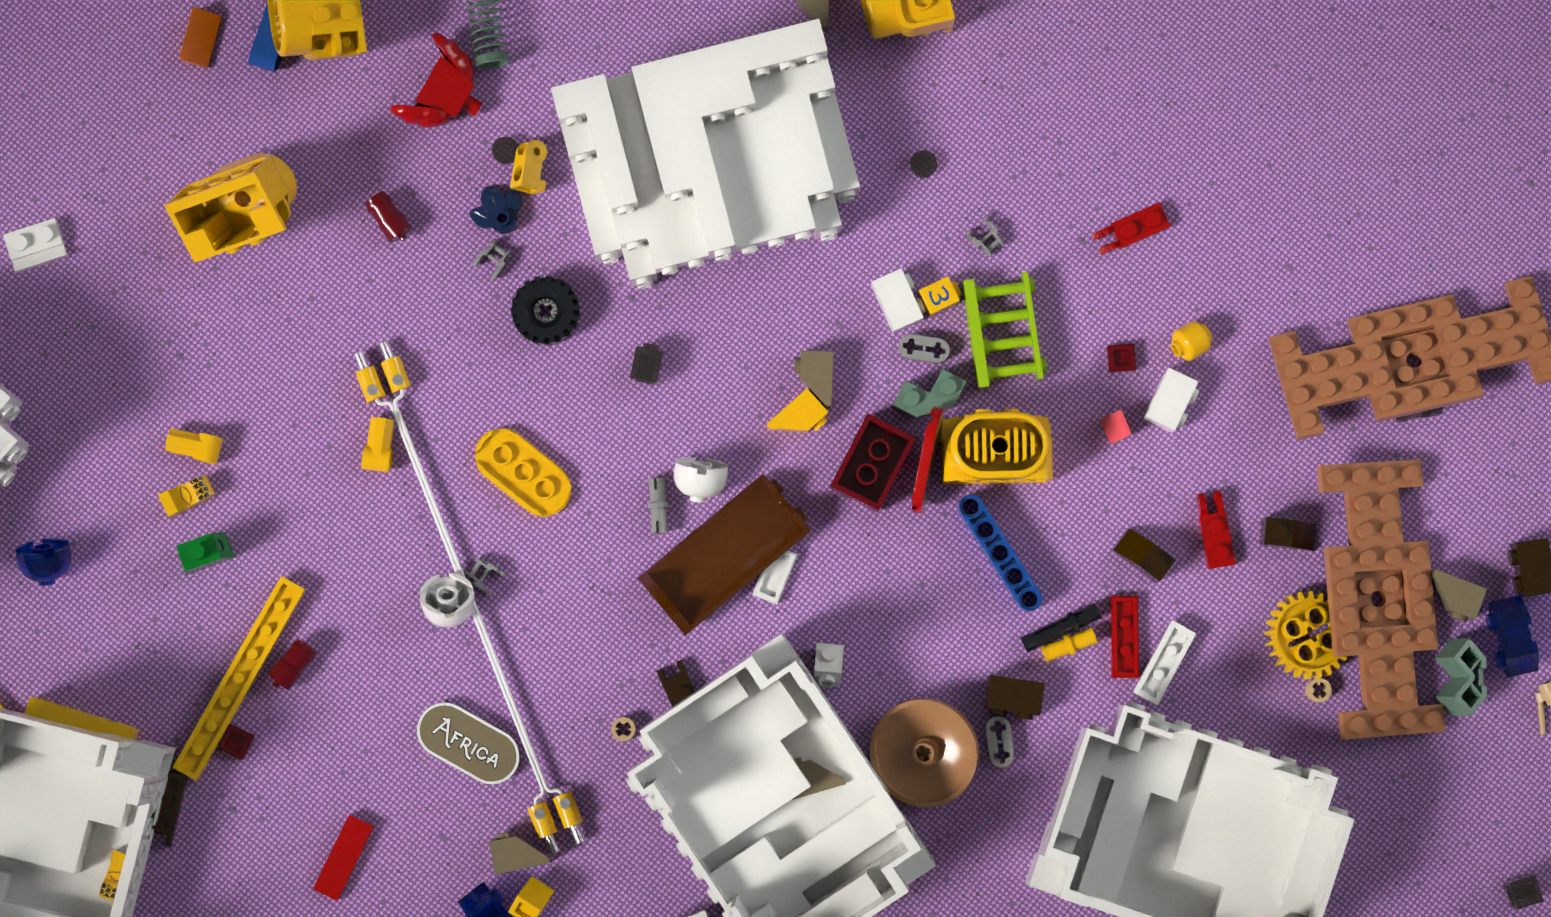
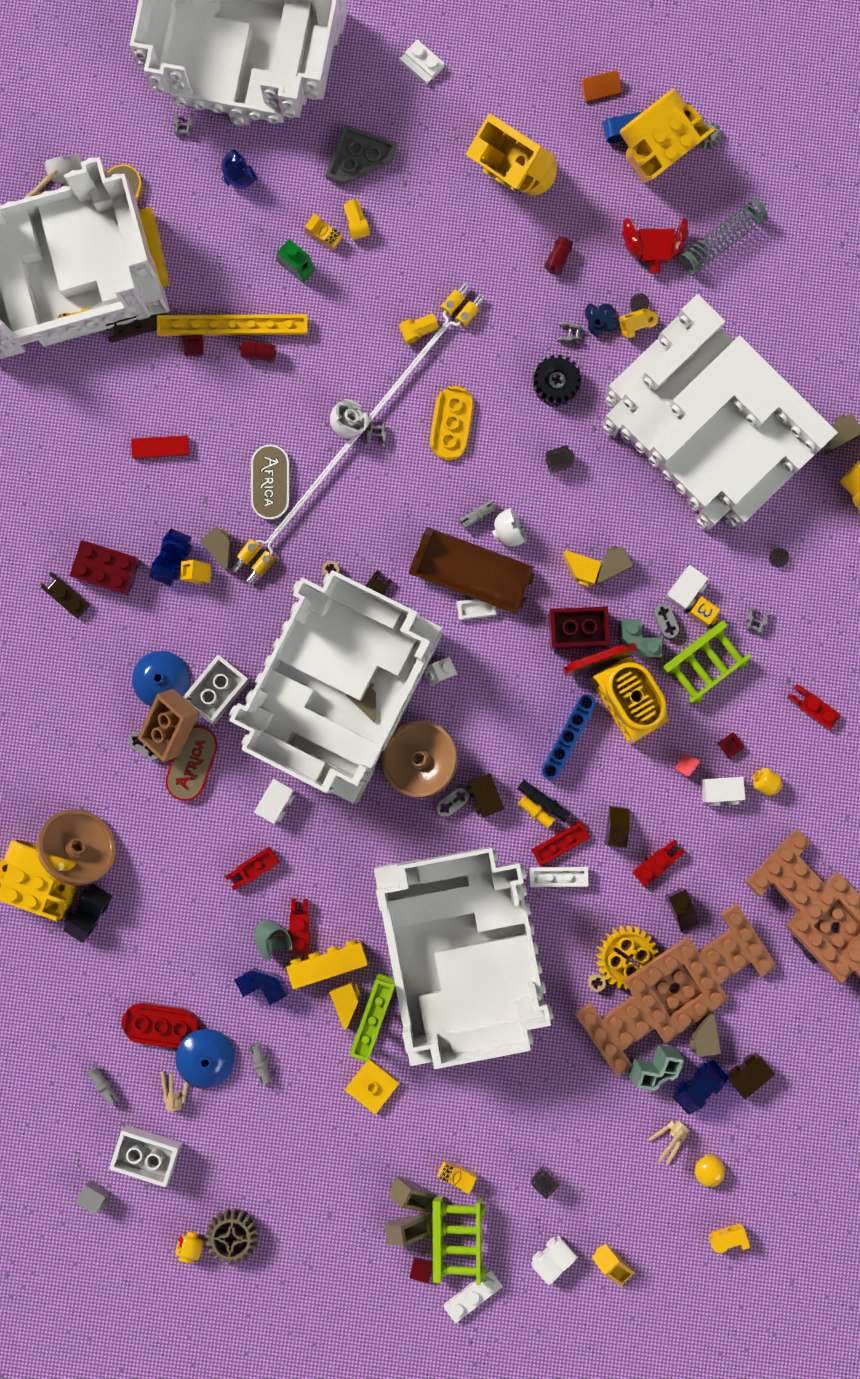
camera: 60 degrees right, 0 degrees up
(111, 394) = (358, 155): none -> dark grey plate

